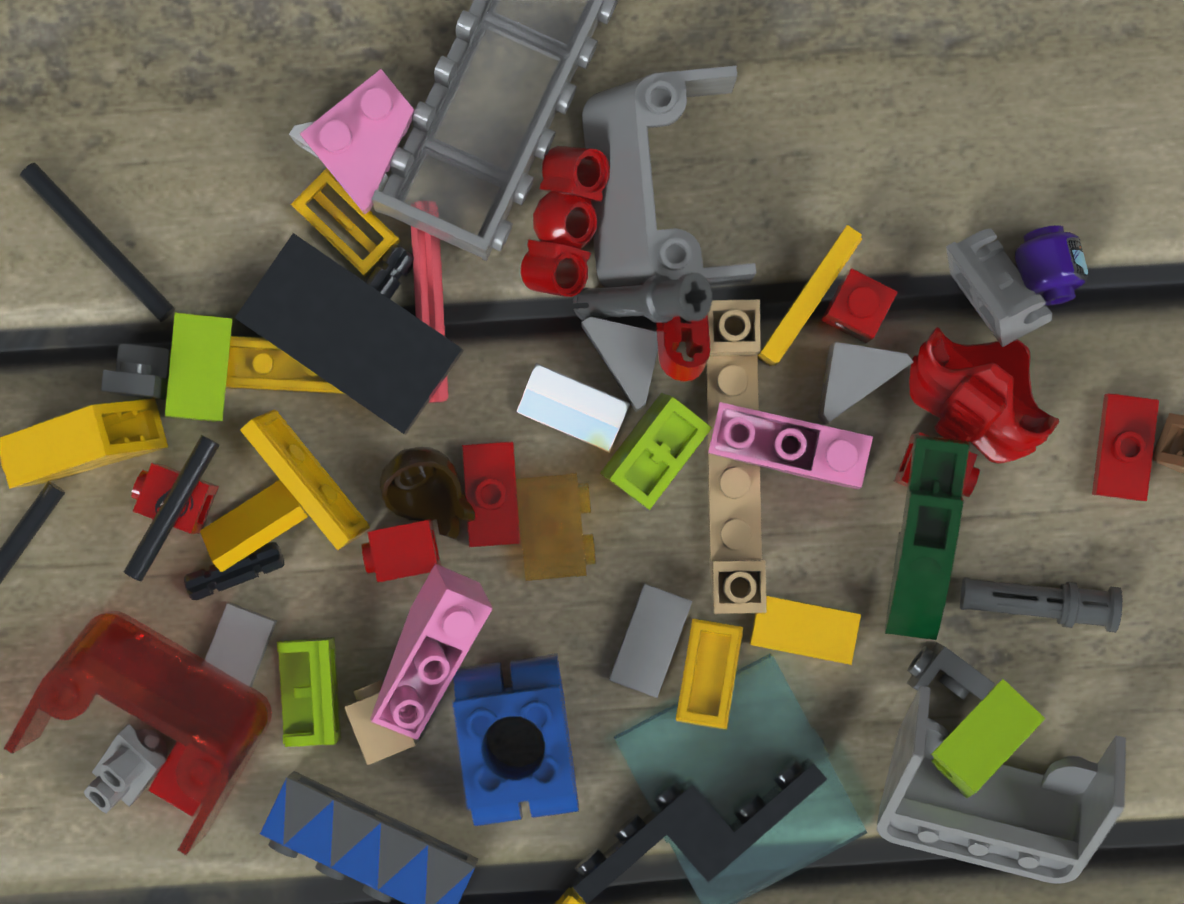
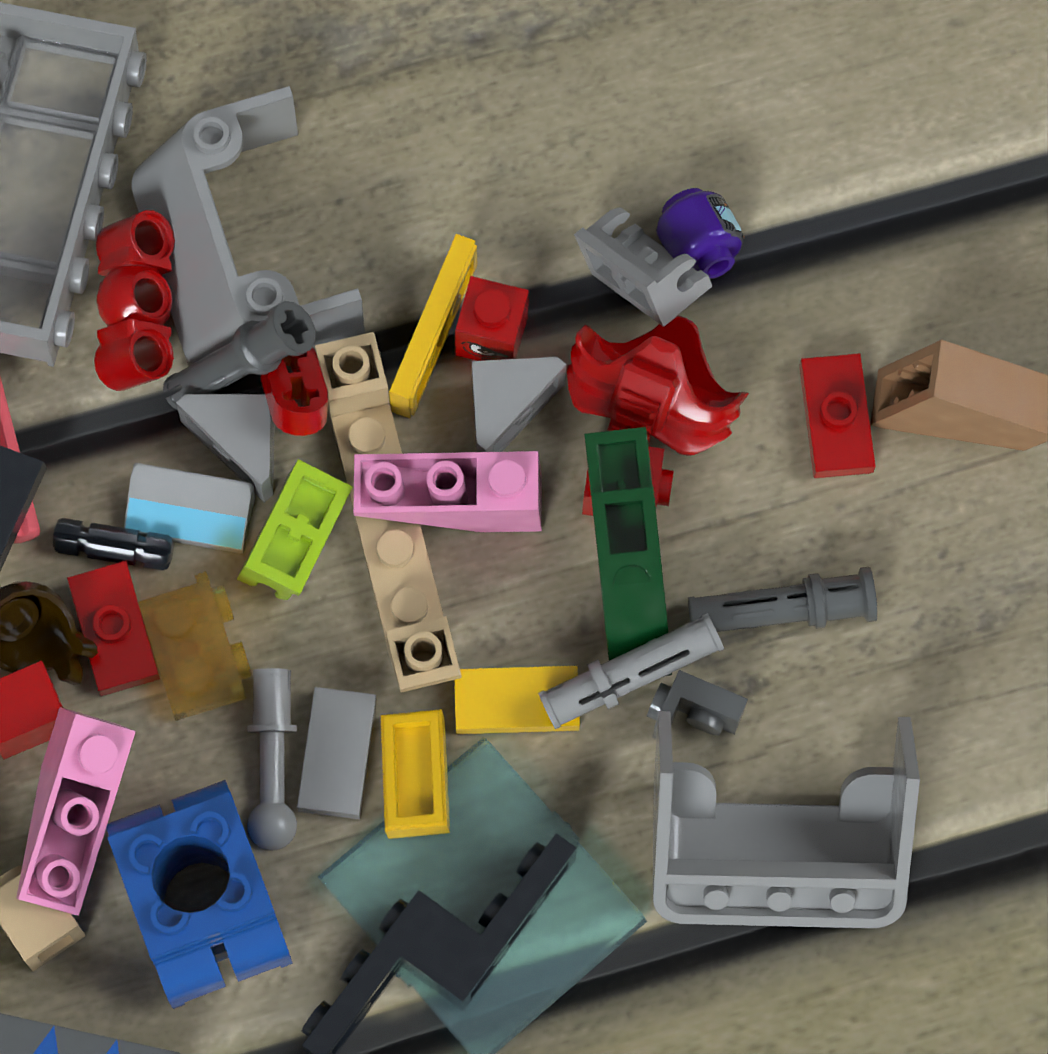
camera: 15 degrees left, 15 degrees down
(505, 423) = (113, 544): none -> black axle
(586, 683) = (272, 822): none -> light grey pin
(905, 637) = (630, 671): none -> light grey pin
(986, 738) = (756, 771): lime hinge -> none

